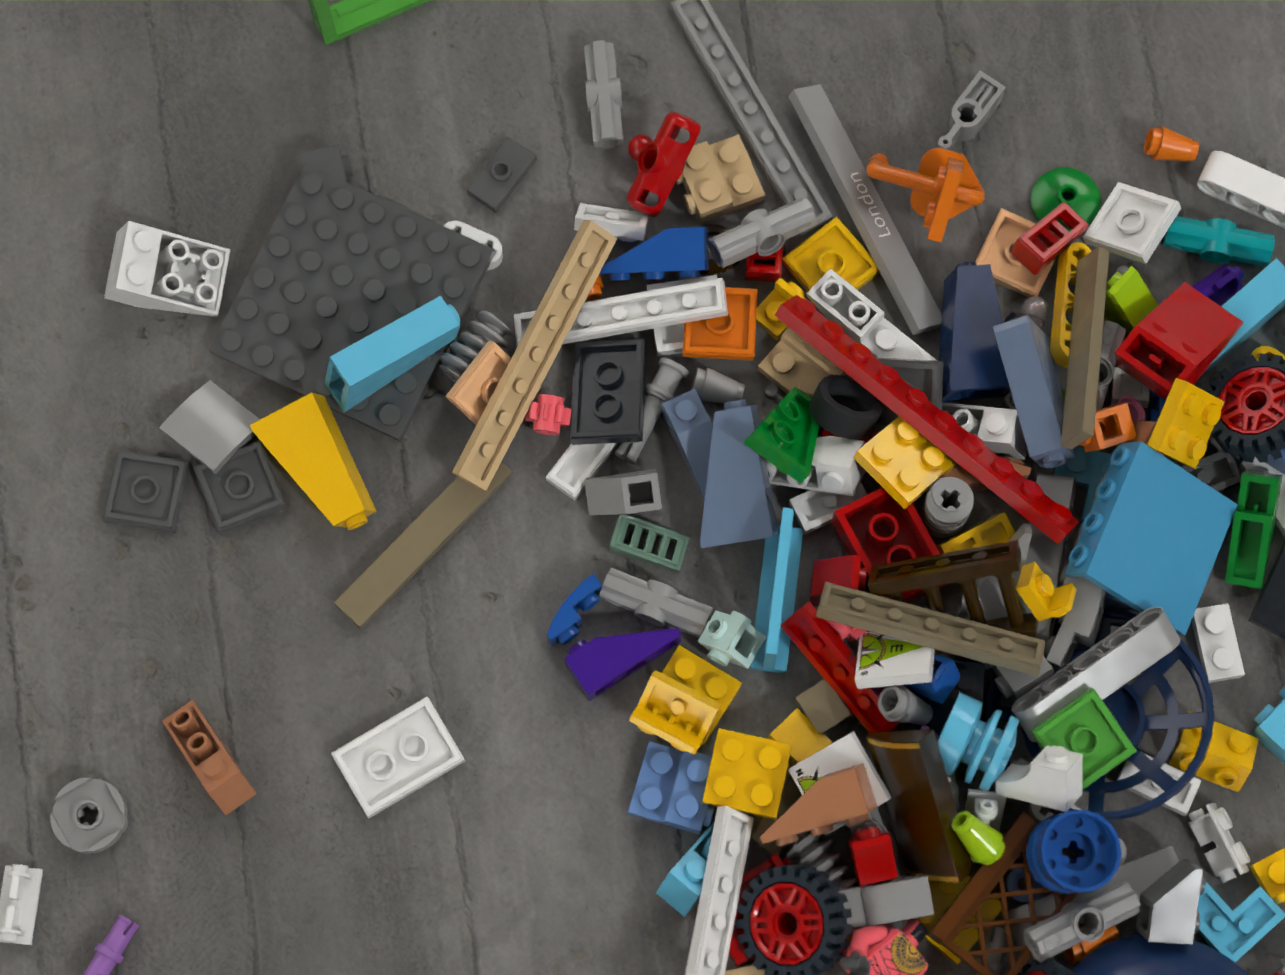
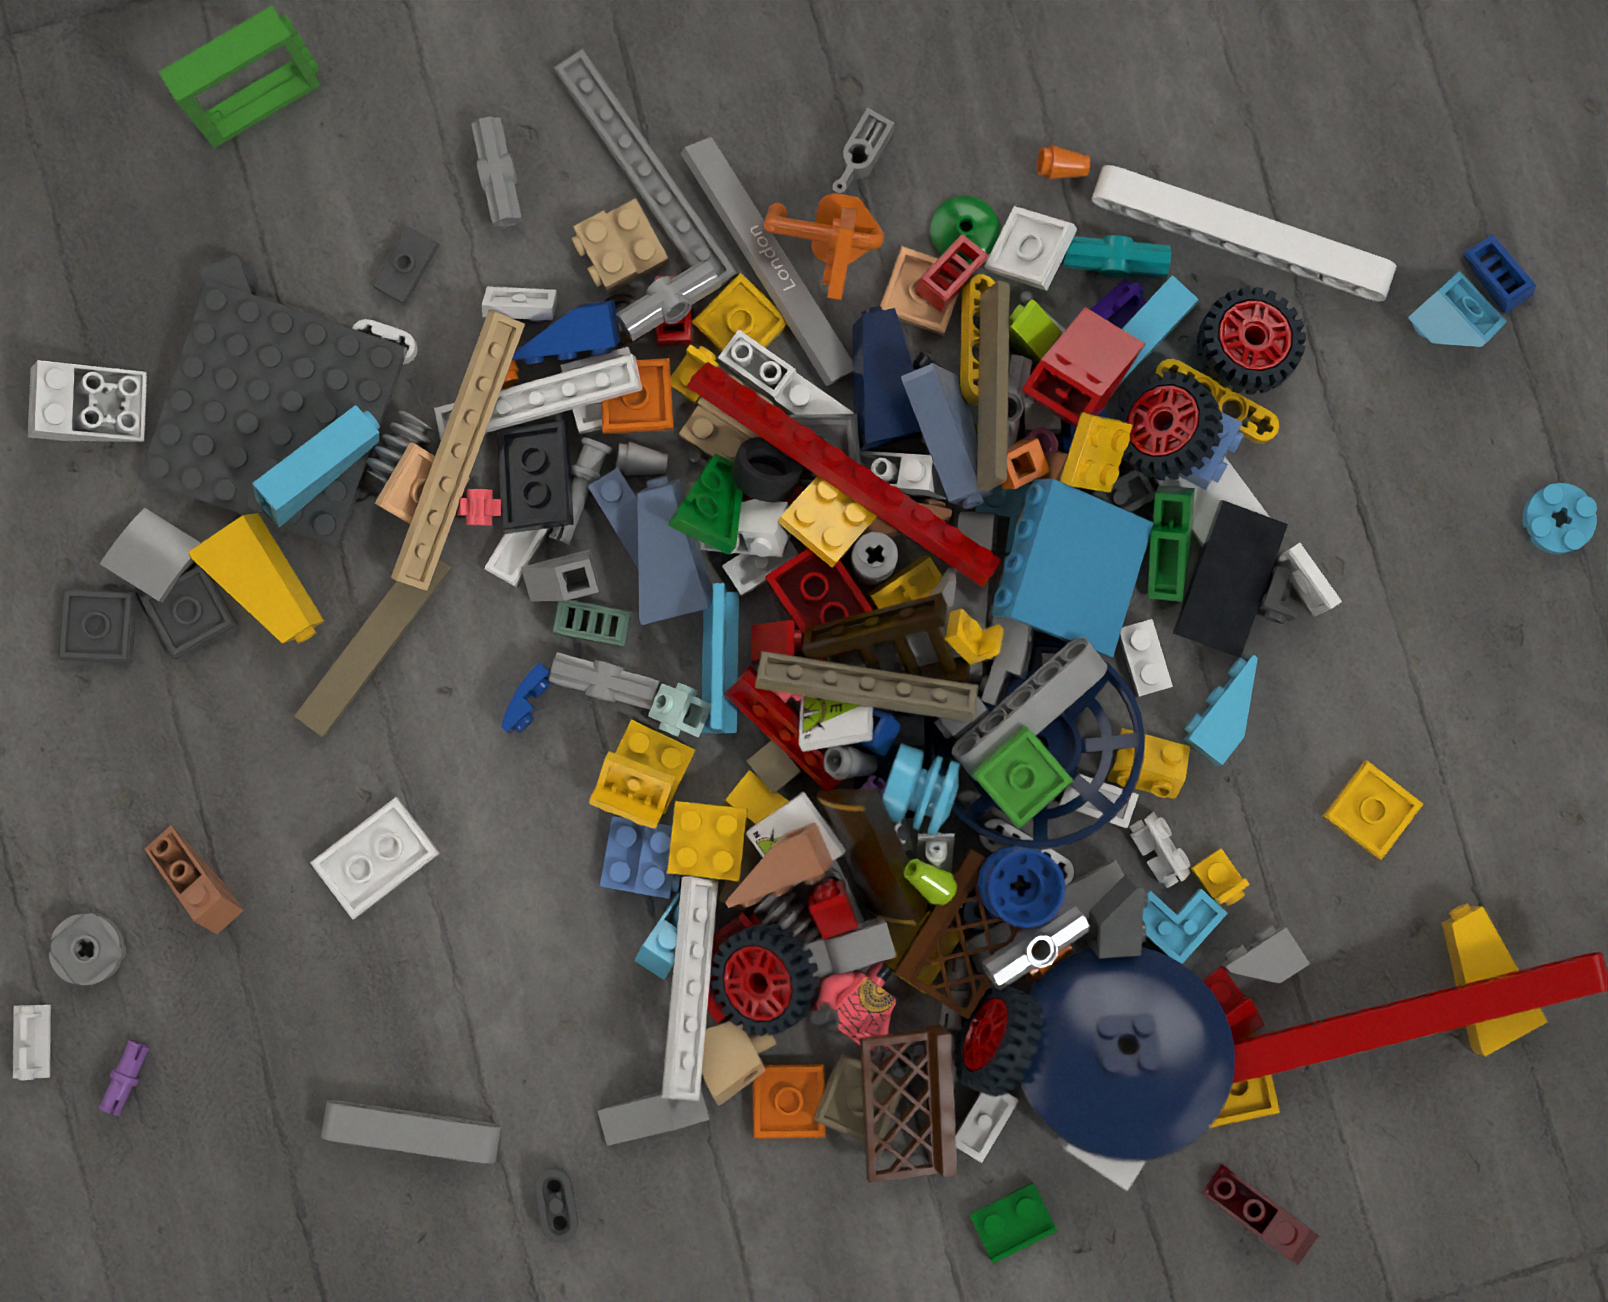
camera: 10 degrees left, 10 degrees up
(613, 658) = (564, 743): dark purple slope -> none
(660, 161) = (559, 238): red piece -> none
(1036, 309) = (943, 348): clear hinge -> none
(1049, 780) = (992, 821): white arch -> none

